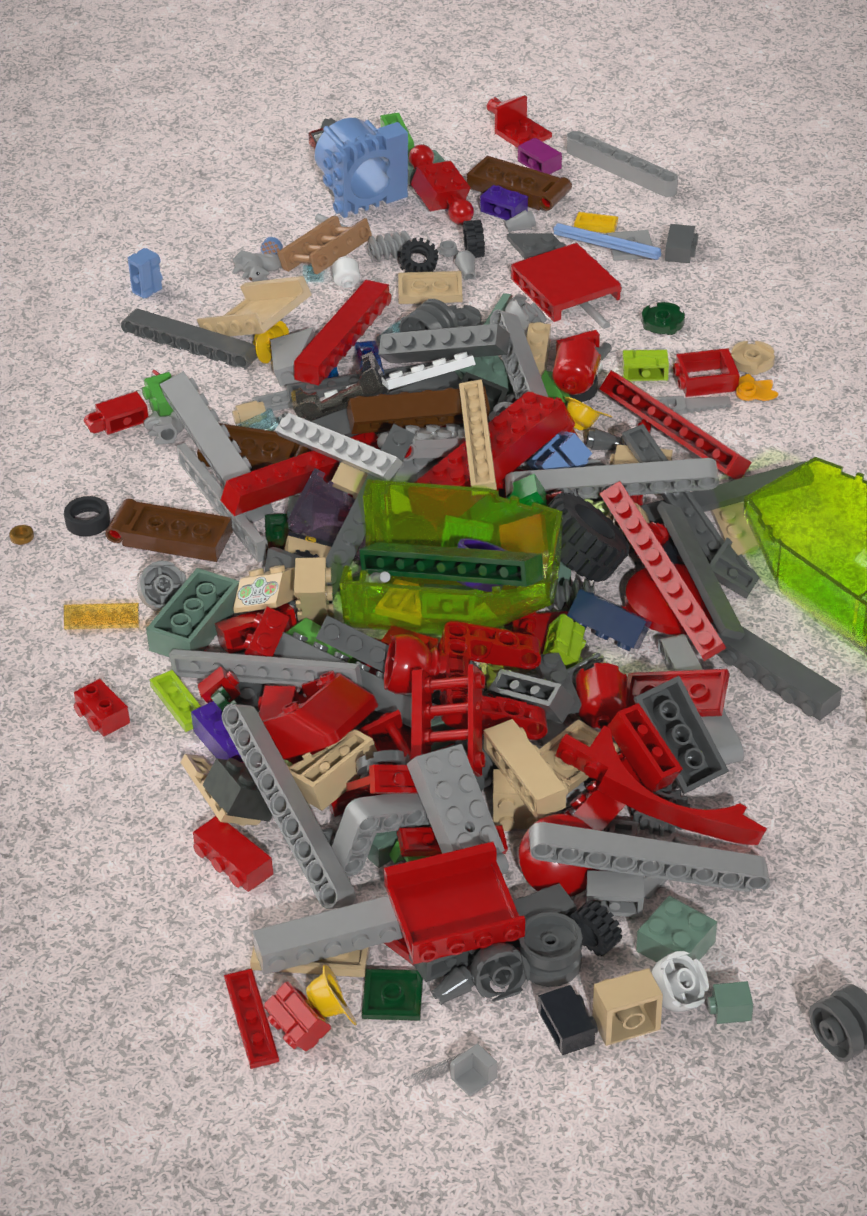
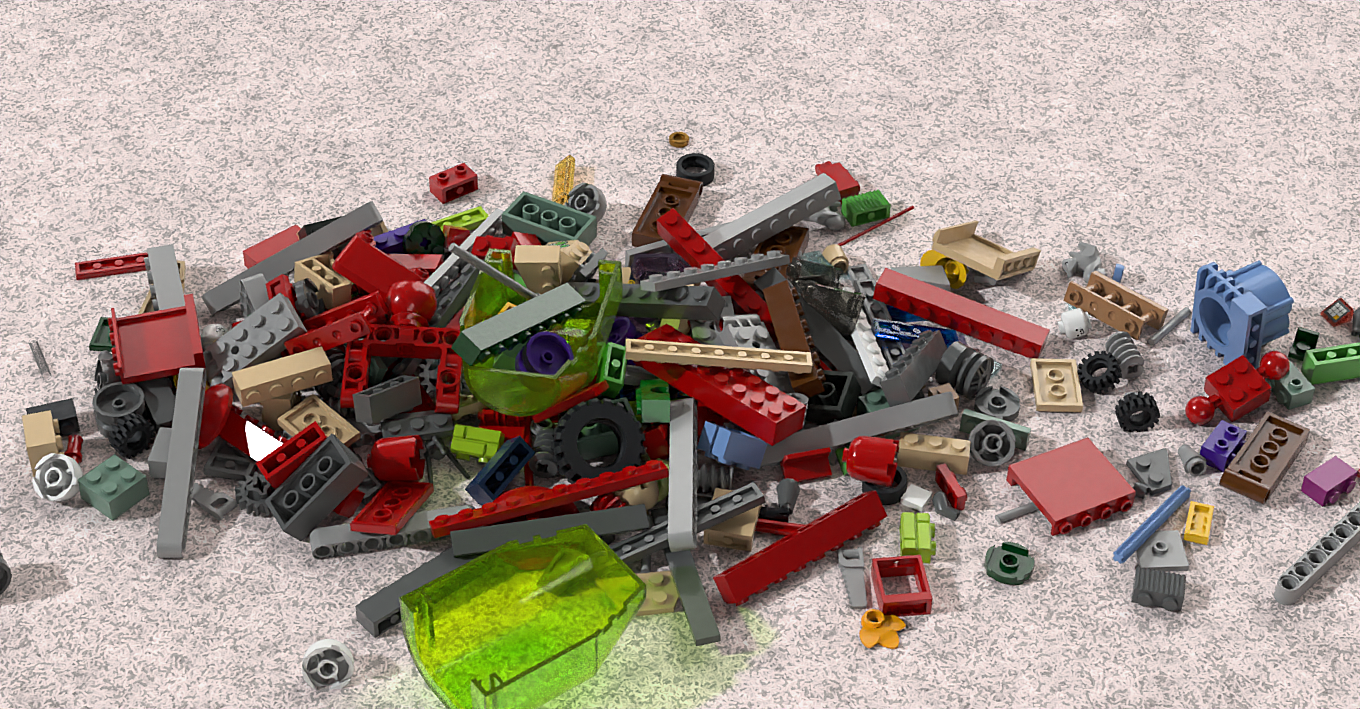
camera: 90 degrees right, 0 degrees up
(145, 273) = (1048, 185): medium blue brick -> none
(190, 338) = (962, 210): dark grey beam -> none
(296, 1017) = (103, 279): brick -> none
(327, 995) = (116, 294): yellow piece -> none
(466, 264) = (1099, 413): light grey cone -> none
(473, 1070) = (27, 372): light grey panel -> none
(582, 414) = (828, 481): yellow piece -> none
(604, 765) = (267, 438): red slope -> none
(731, 1002) = (36, 515): sand green brick -> none
(753, 357) = (936, 643): tan plate -> none

